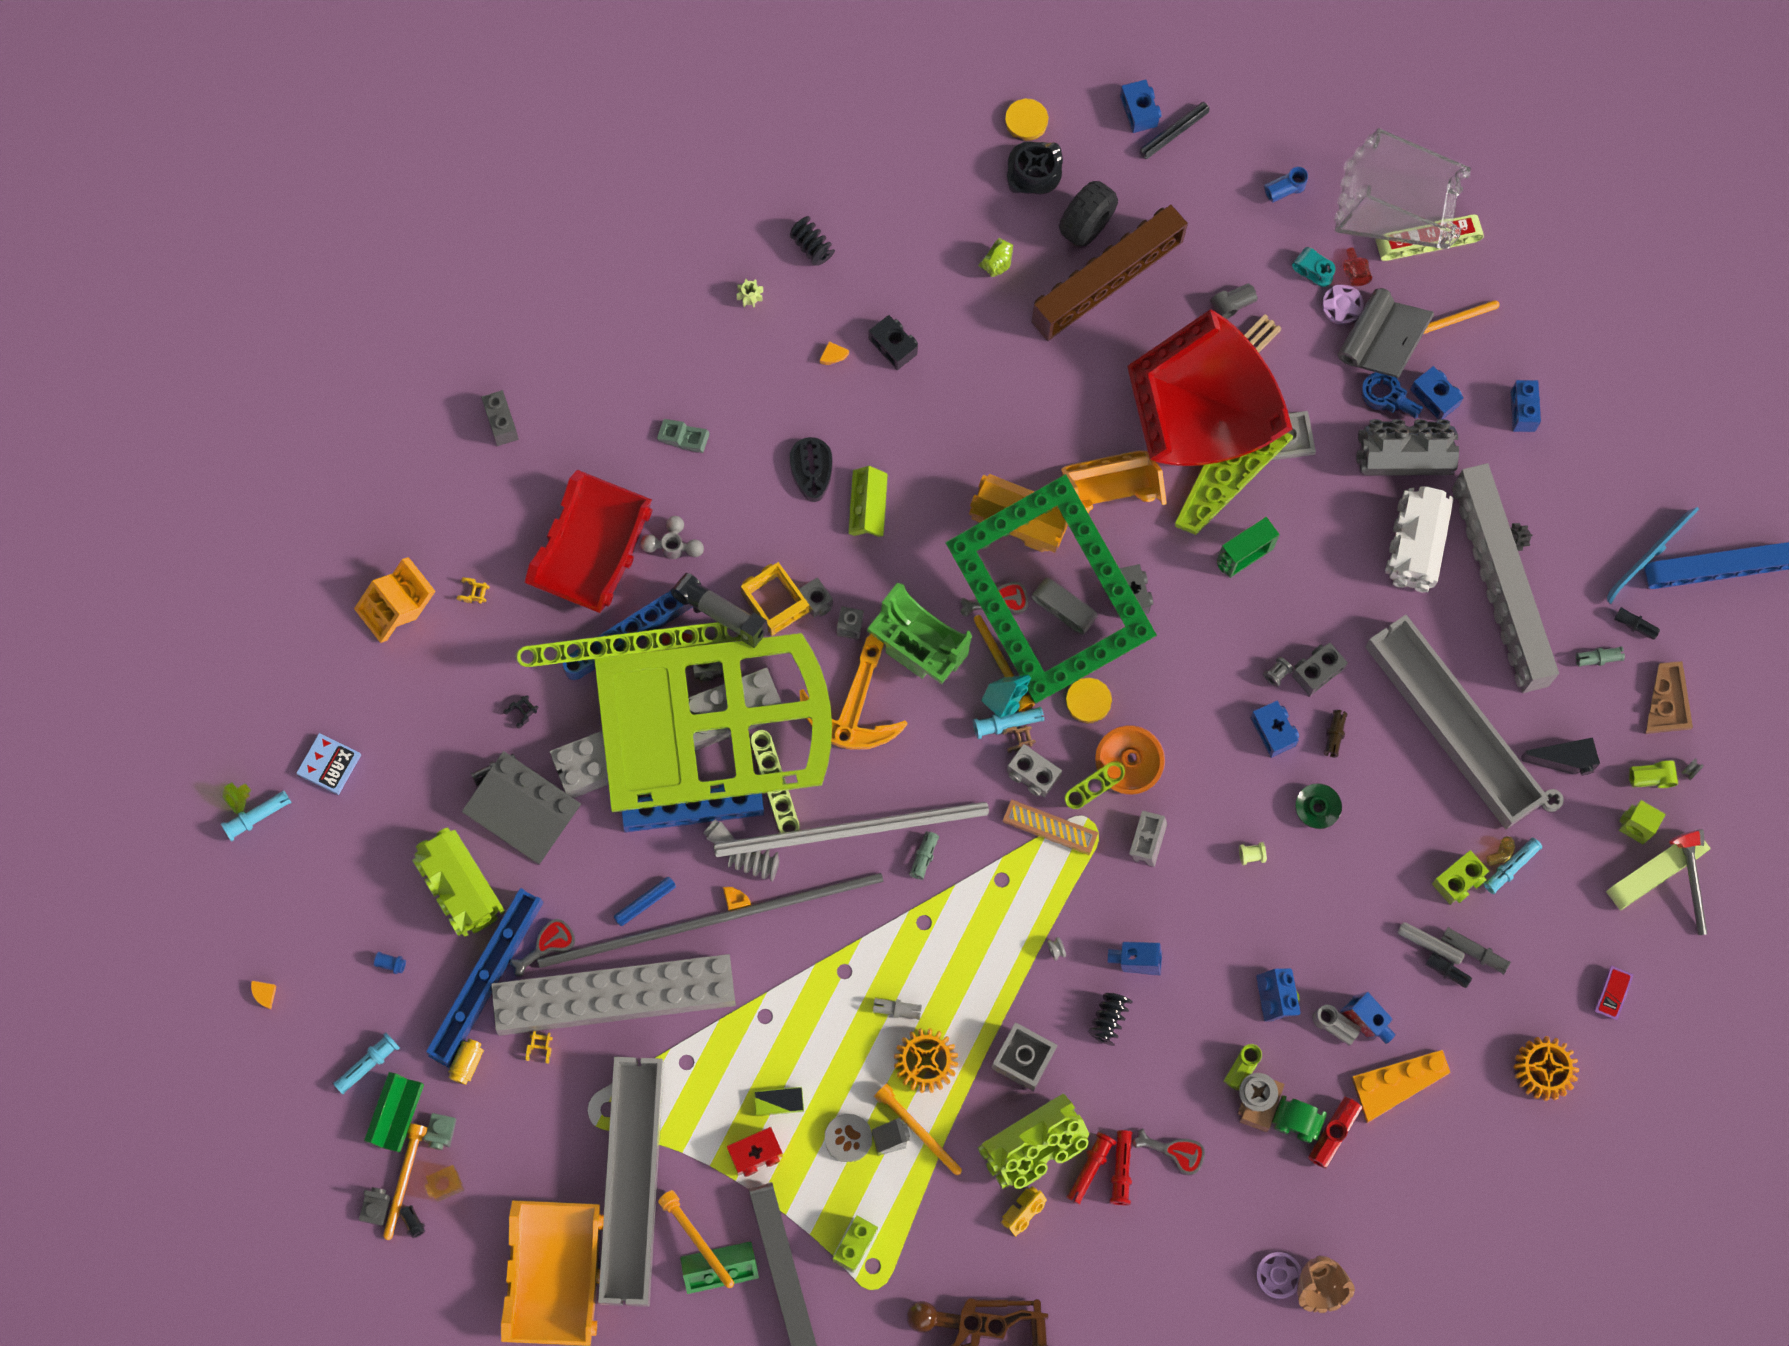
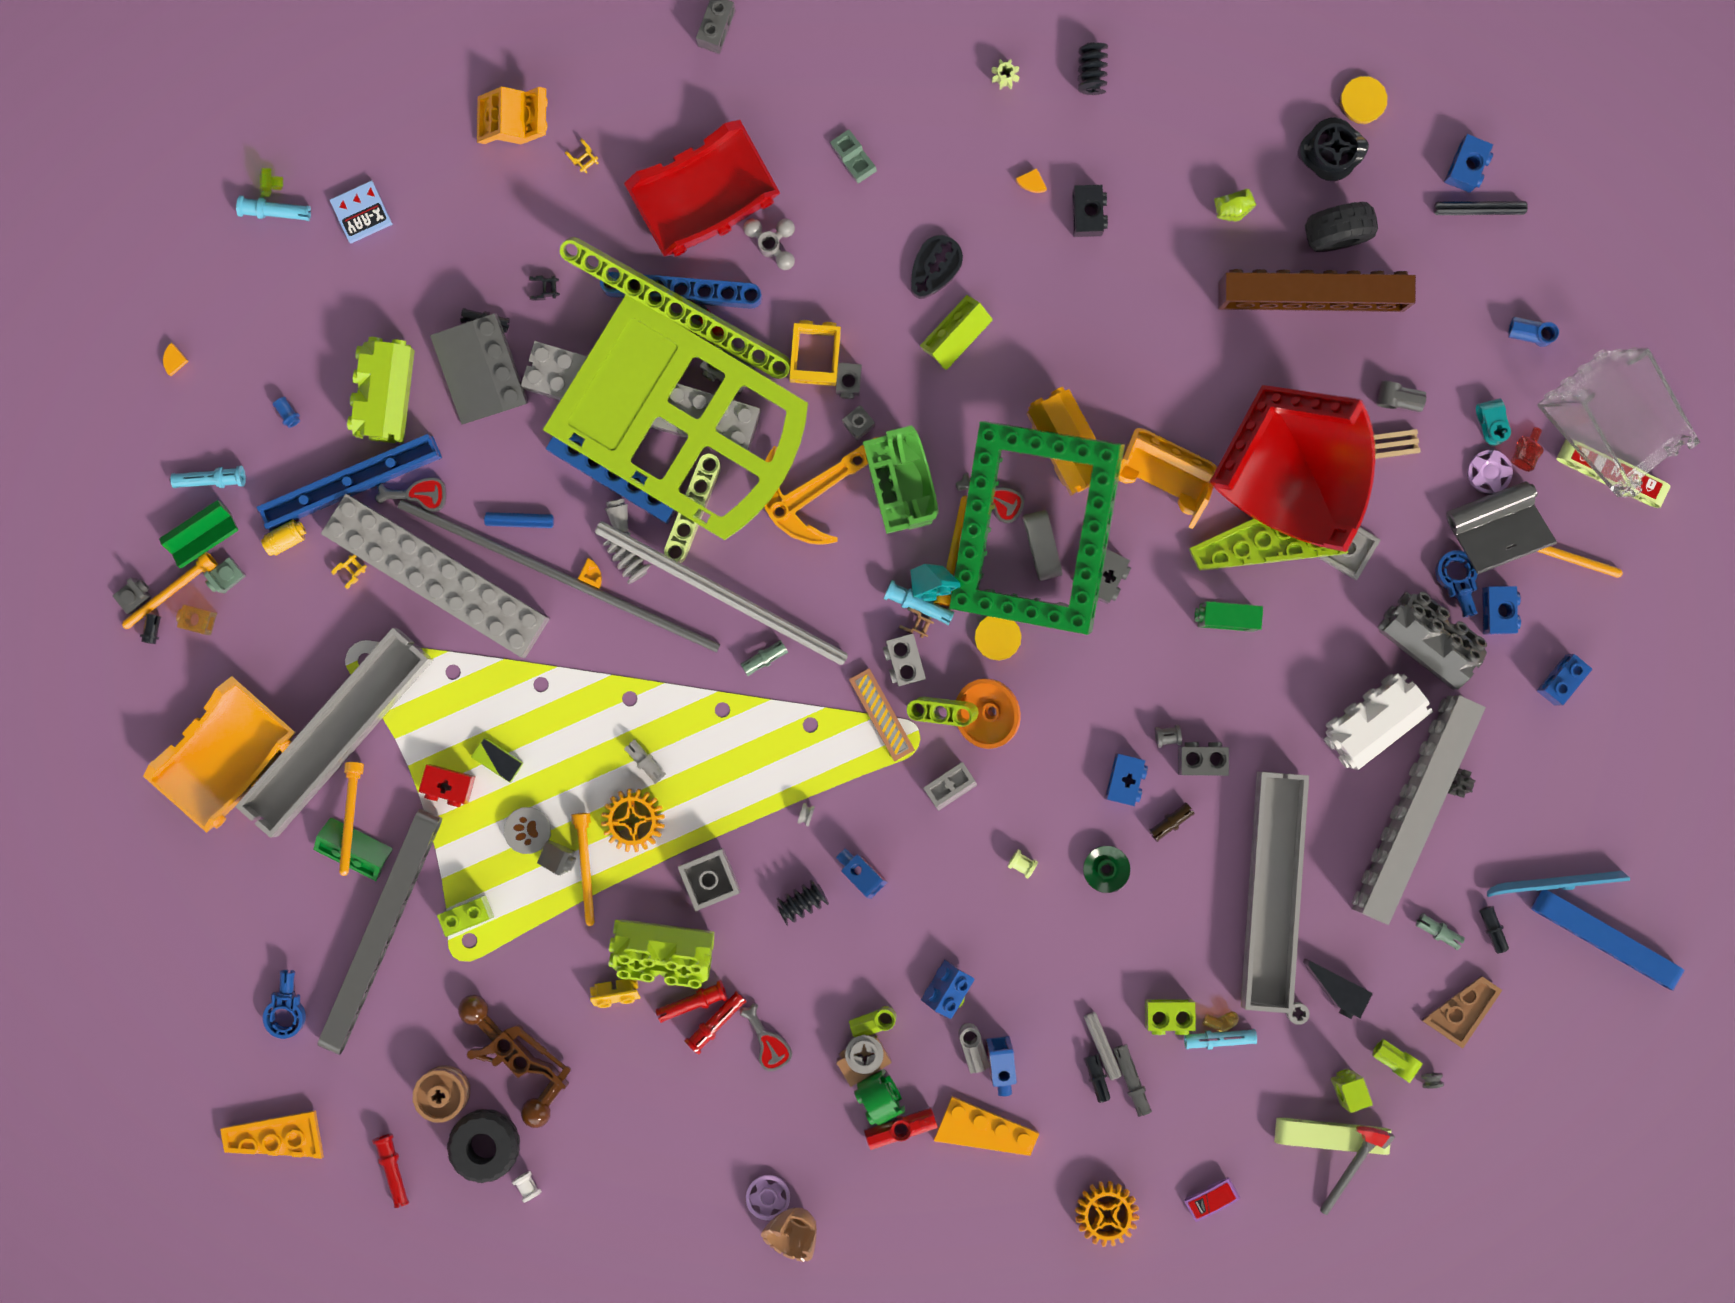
camera: 40 degrees right, 15 degrees up
(691, 591) = (748, 299): piece -> none

